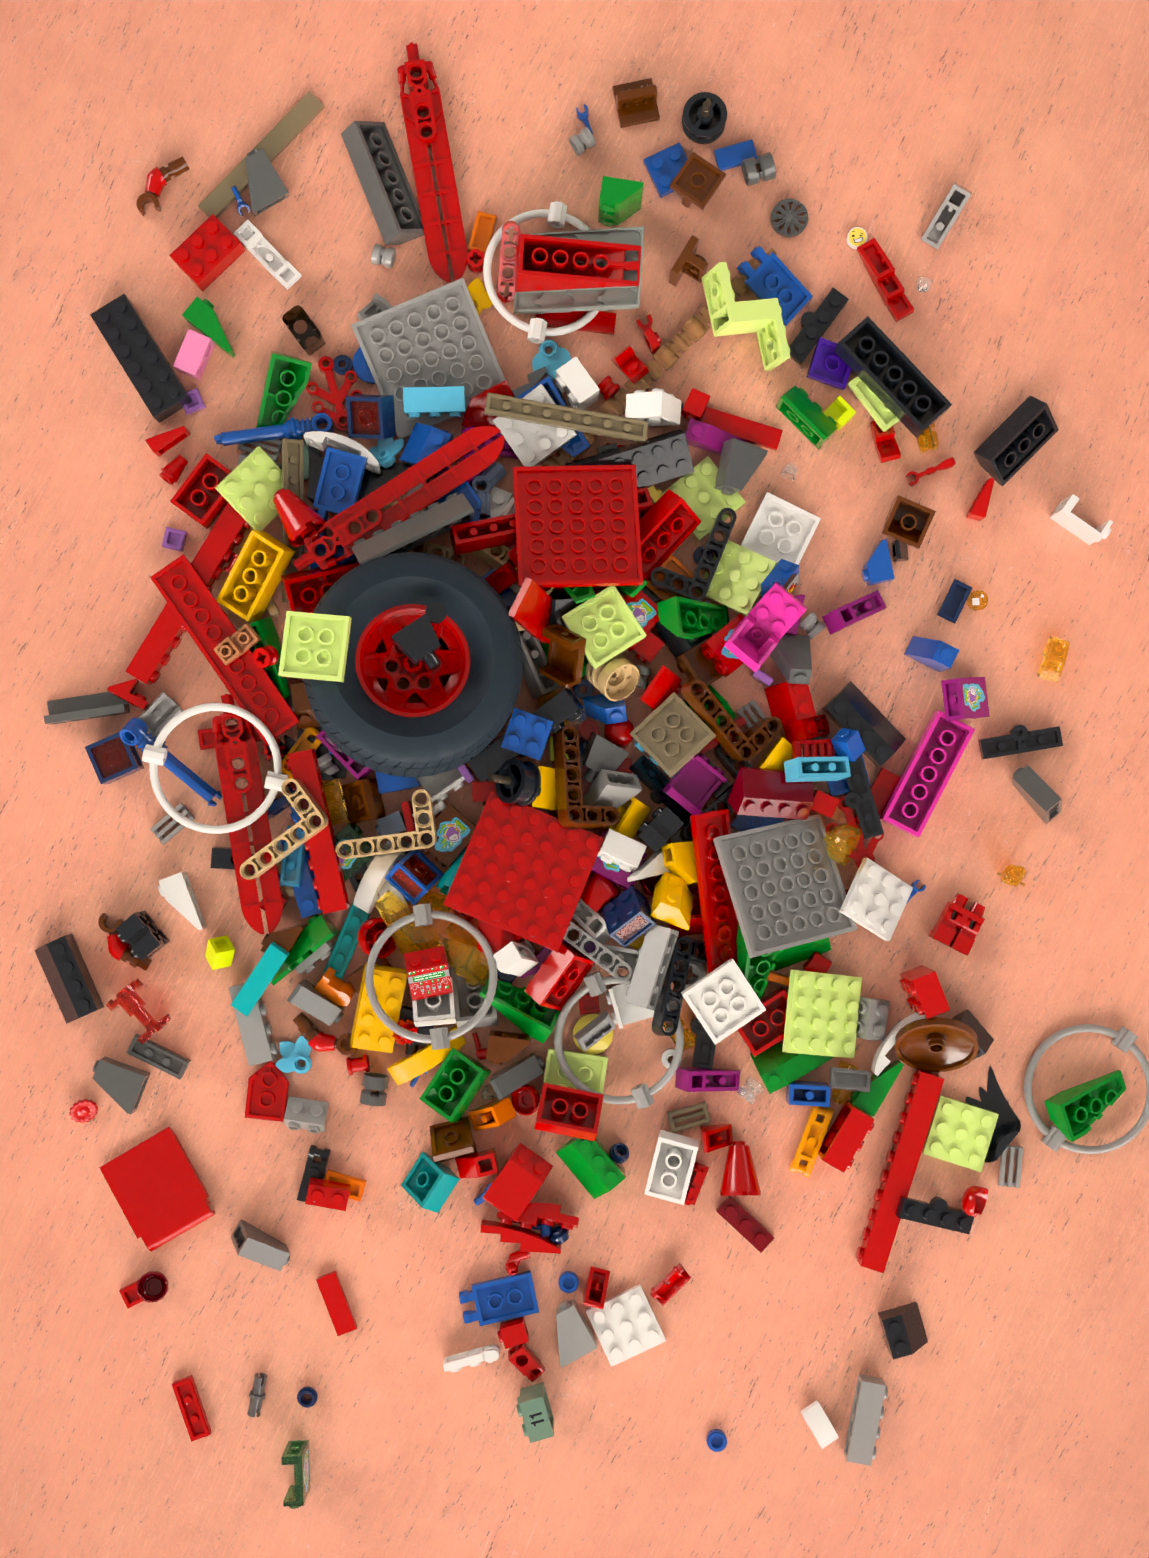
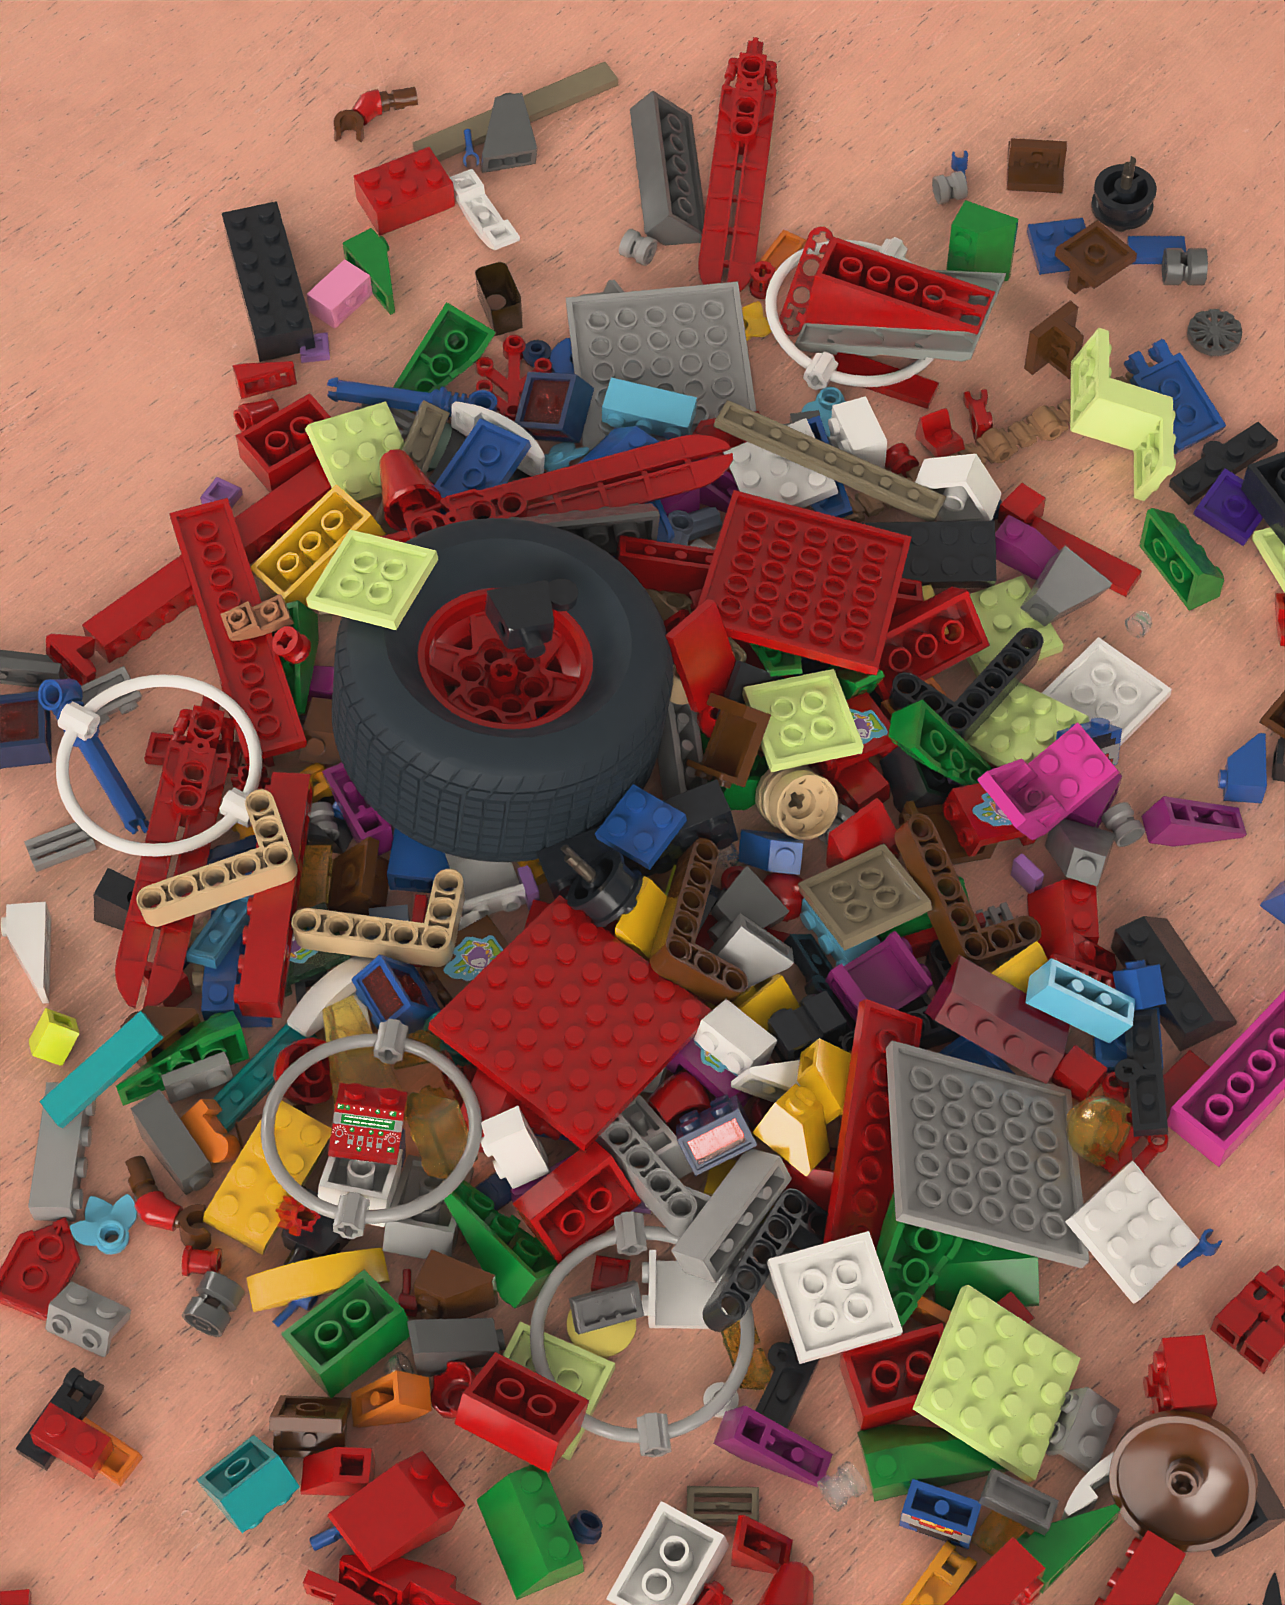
camera: 15 degrees right, 30 degrees down
(584, 682) = (747, 816): dark blue plate -> none
(840, 412) = (1236, 569): neon yellow panel -> none

